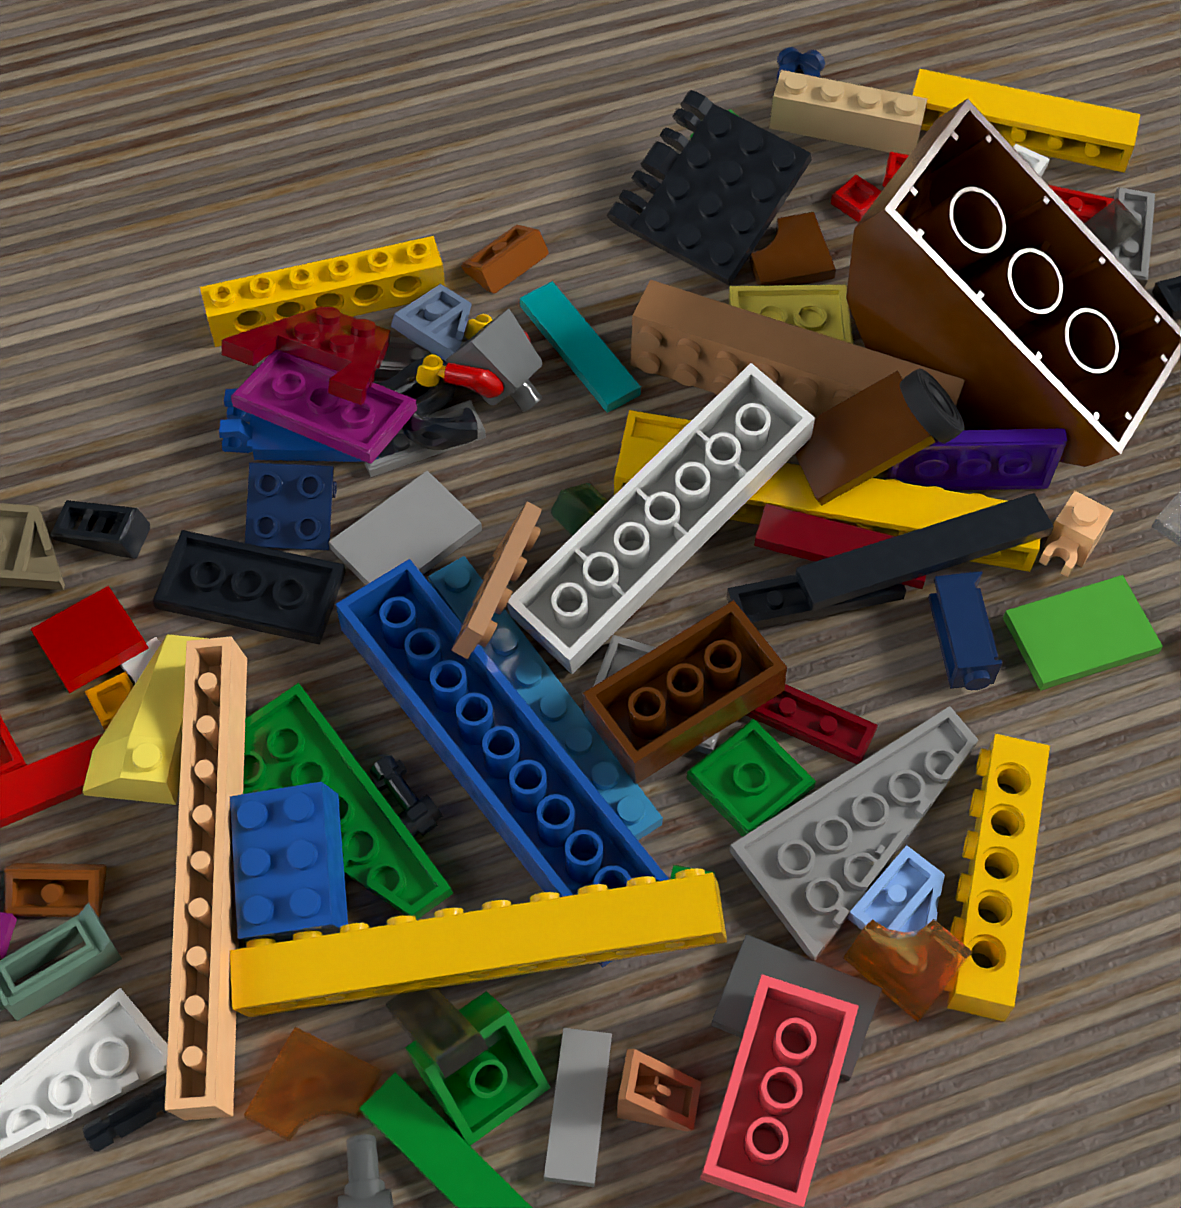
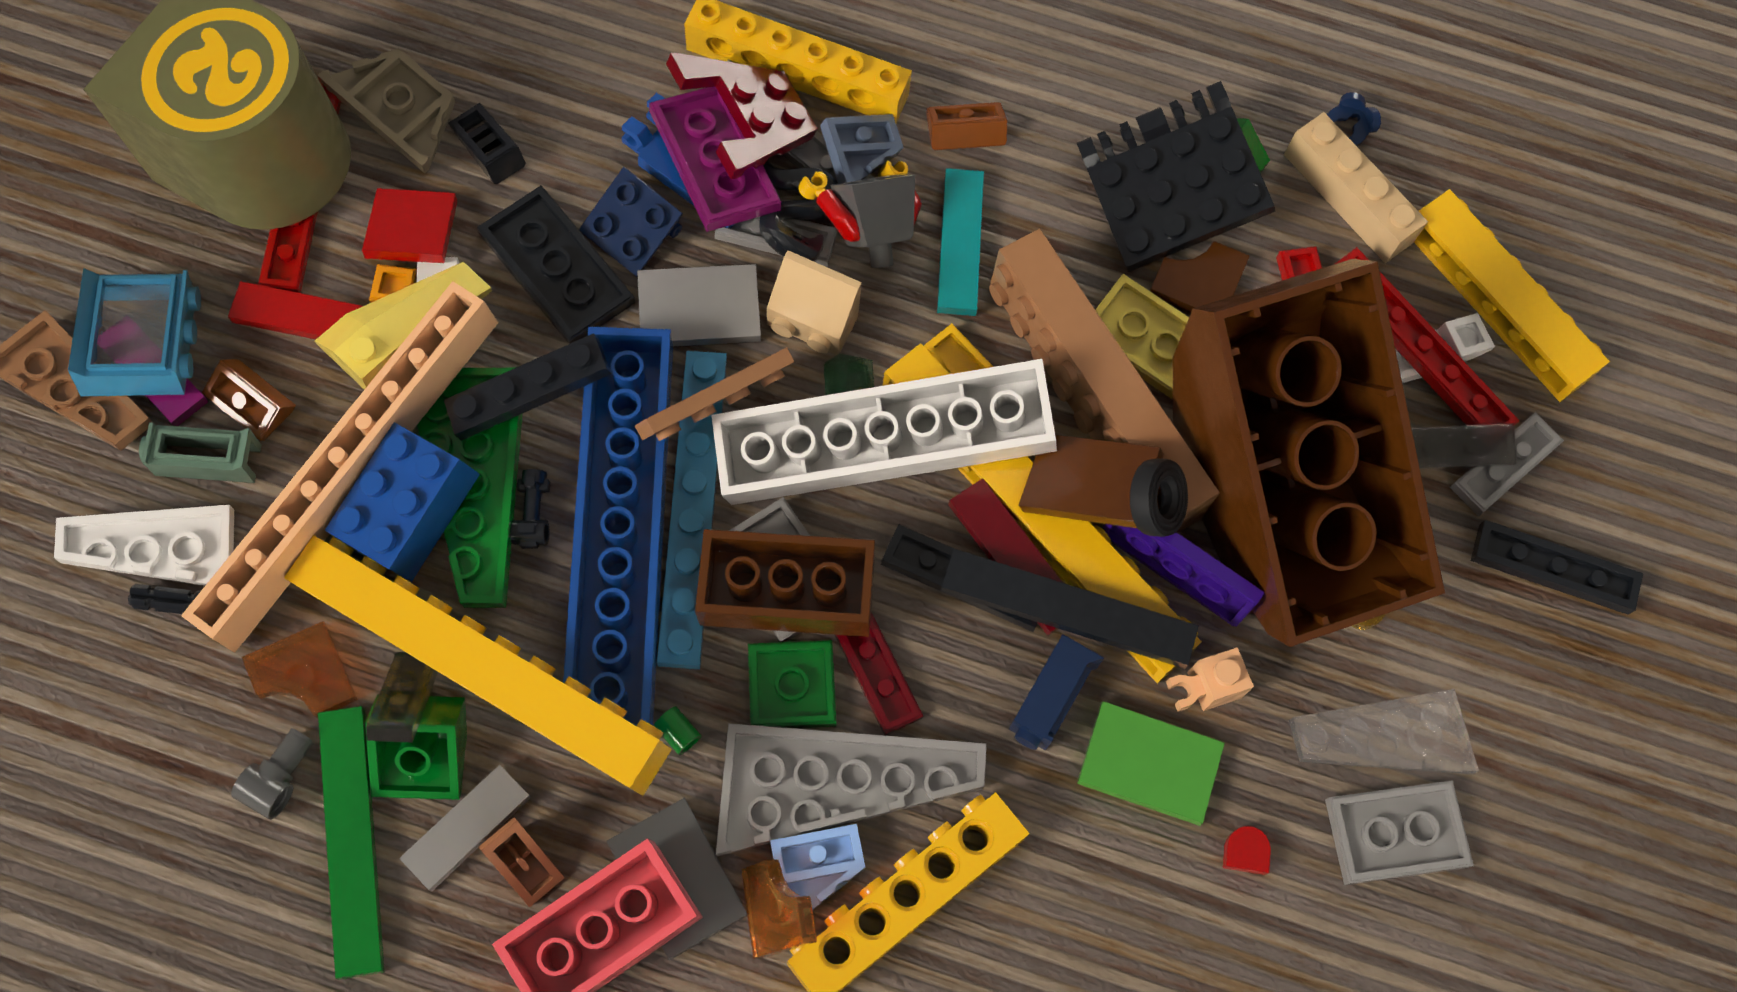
camera: 30 degrees right, 10 degrees up
(322, 690) = (527, 387): none -> black plate
(508, 463) = (813, 304): none -> tan slope

